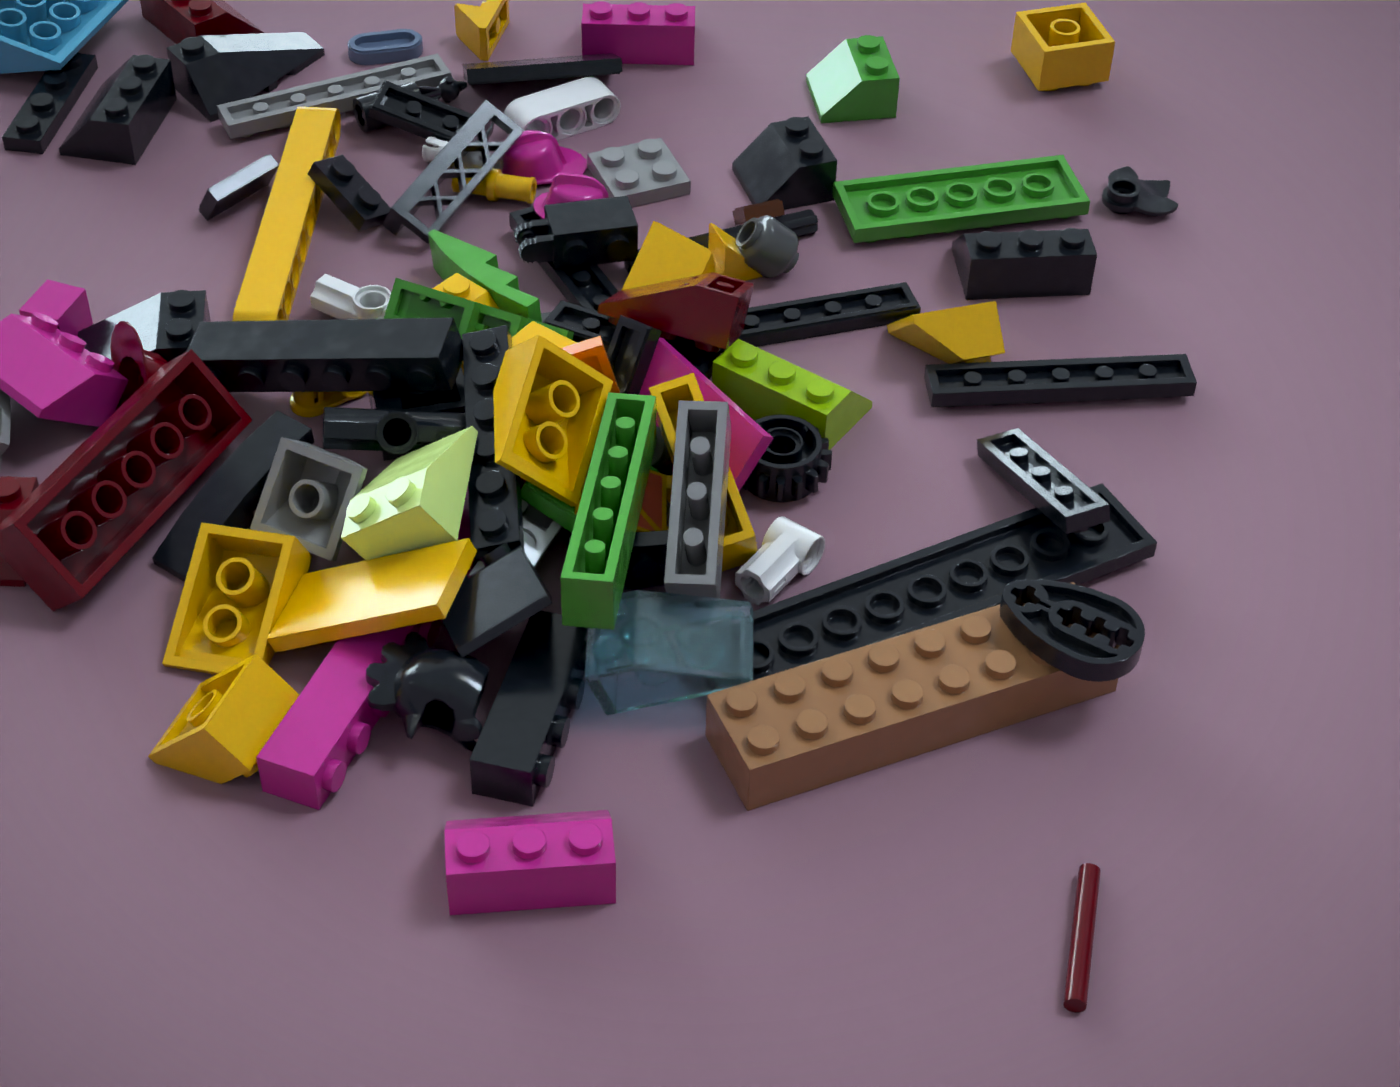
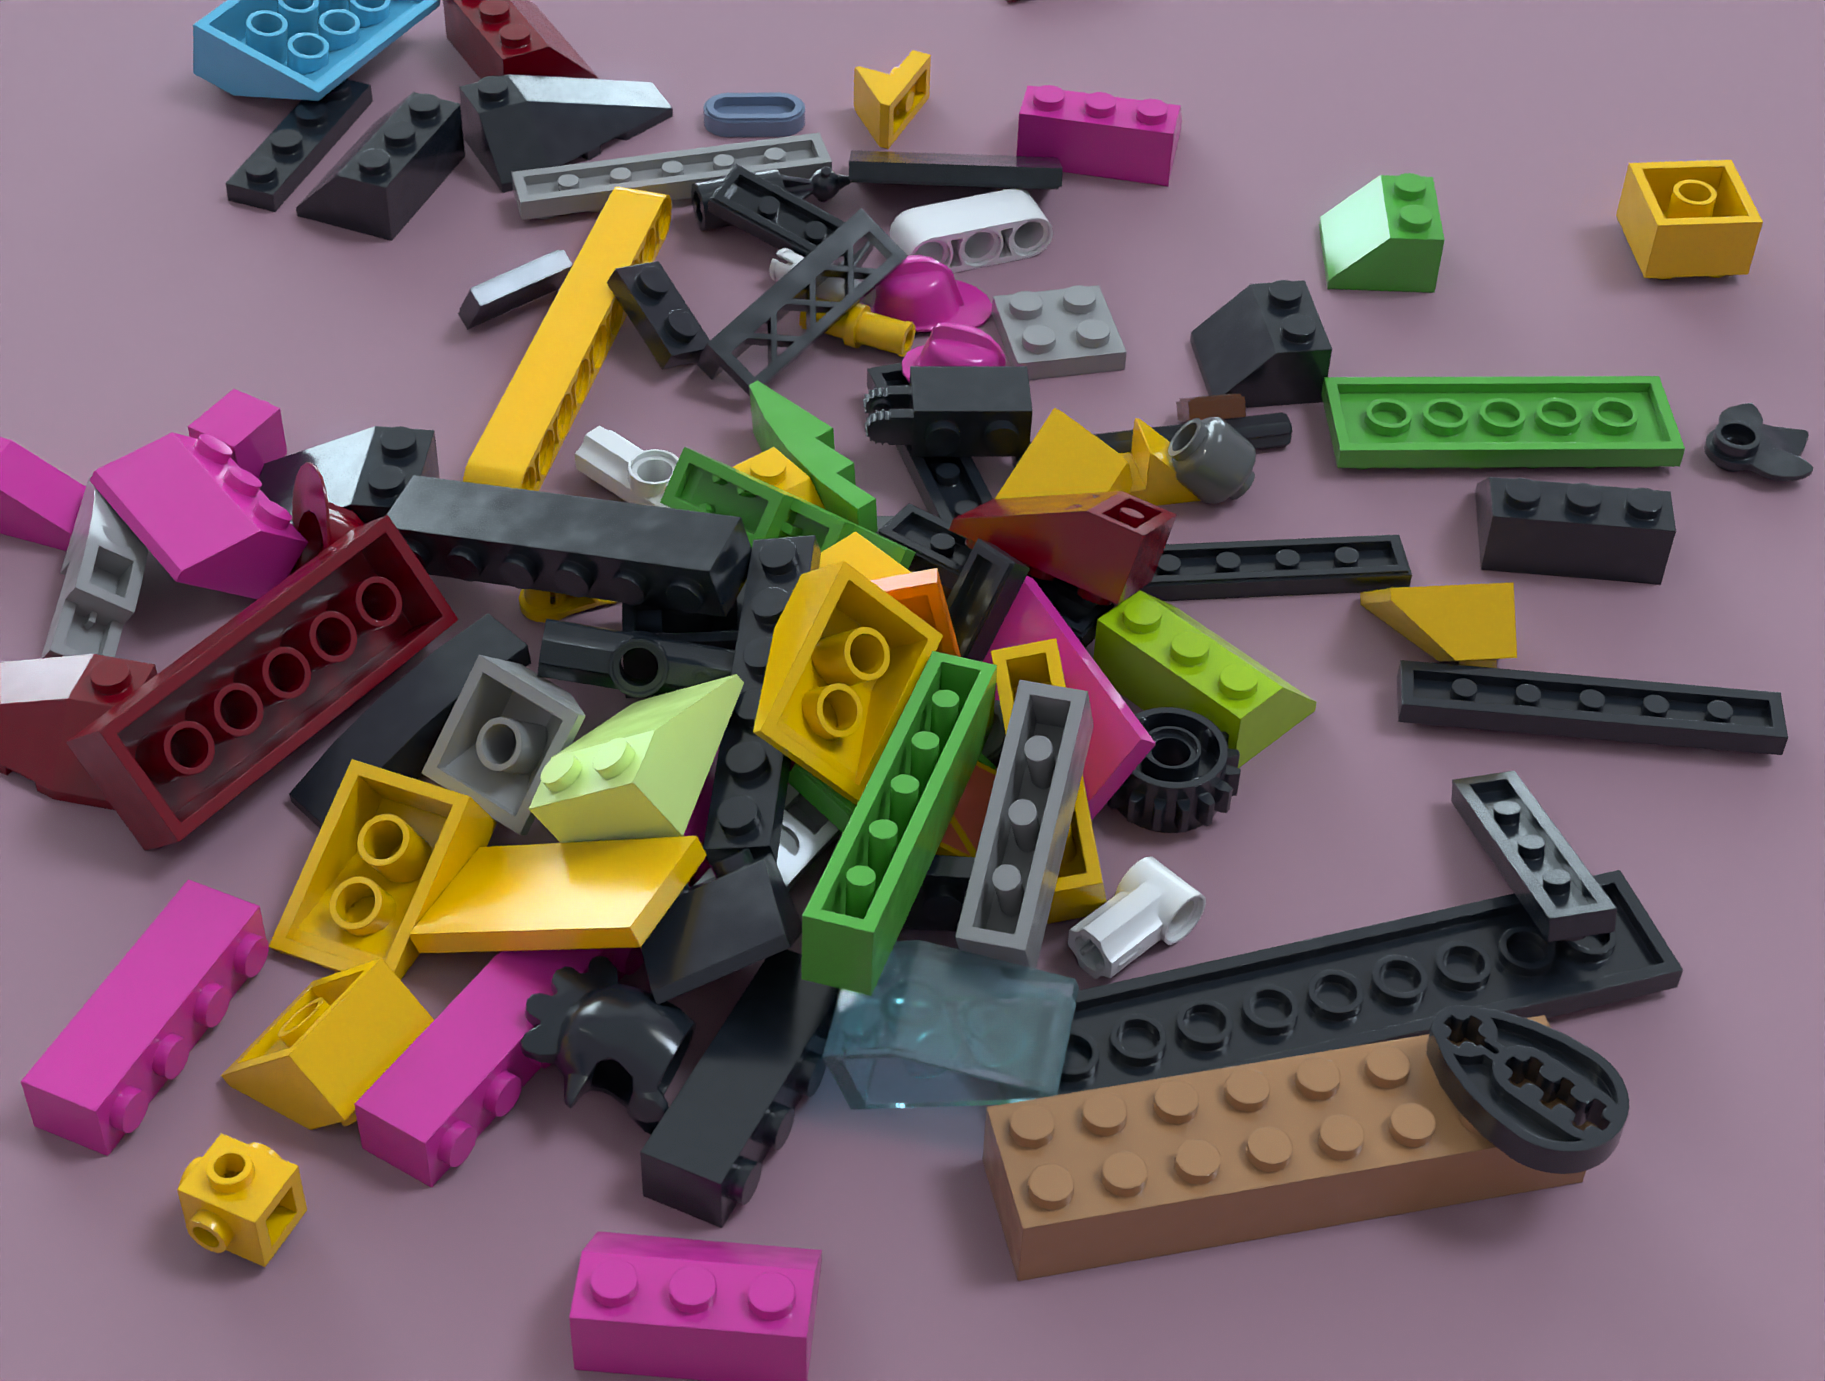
camera: 10 degrees right, 0 degrees up
(85, 723) = (146, 1018): none -> dark pink brick
(187, 834) = (241, 1199): none -> yellow brick

